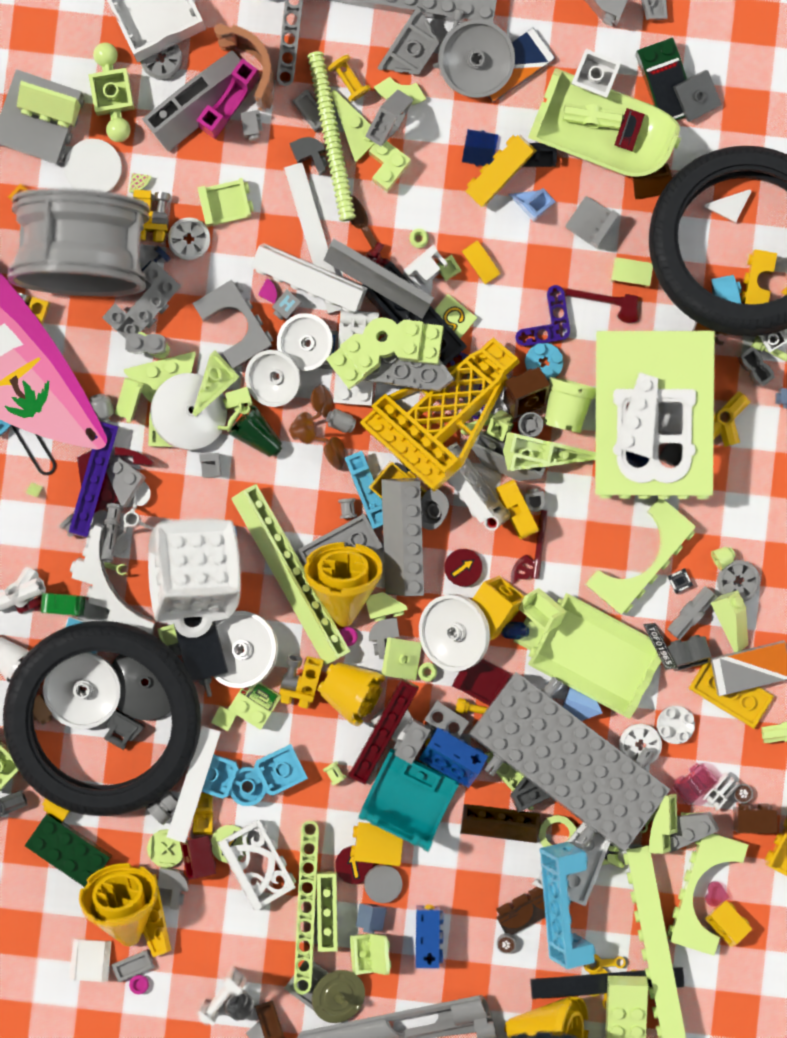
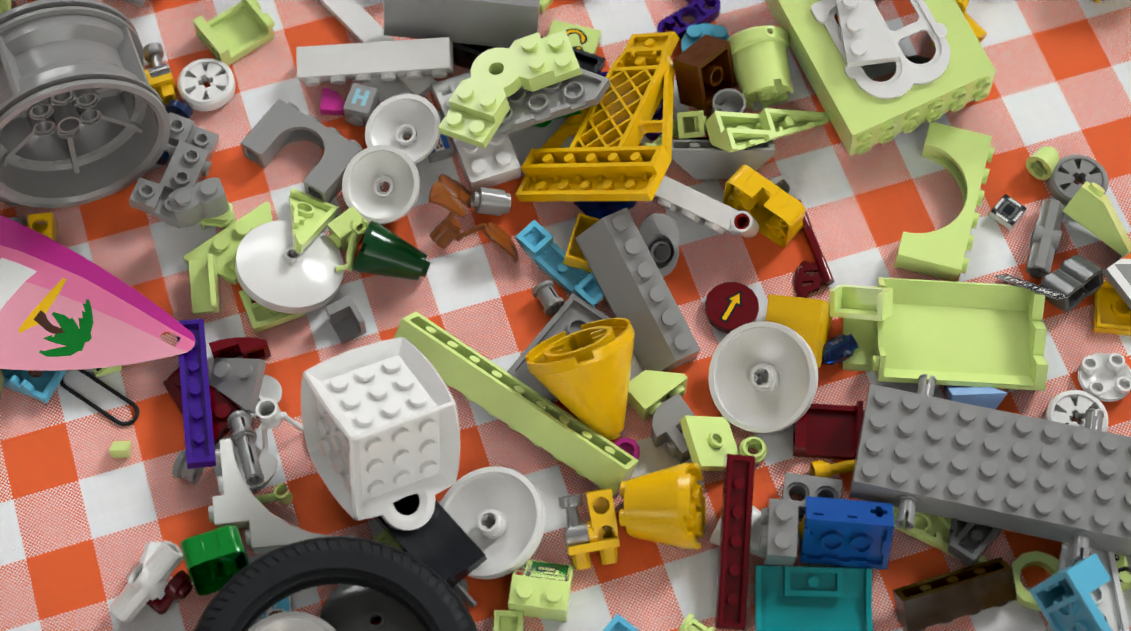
camera: 25 degrees left, 25 degrees down
(102, 406) = (173, 304): light grey head -> none

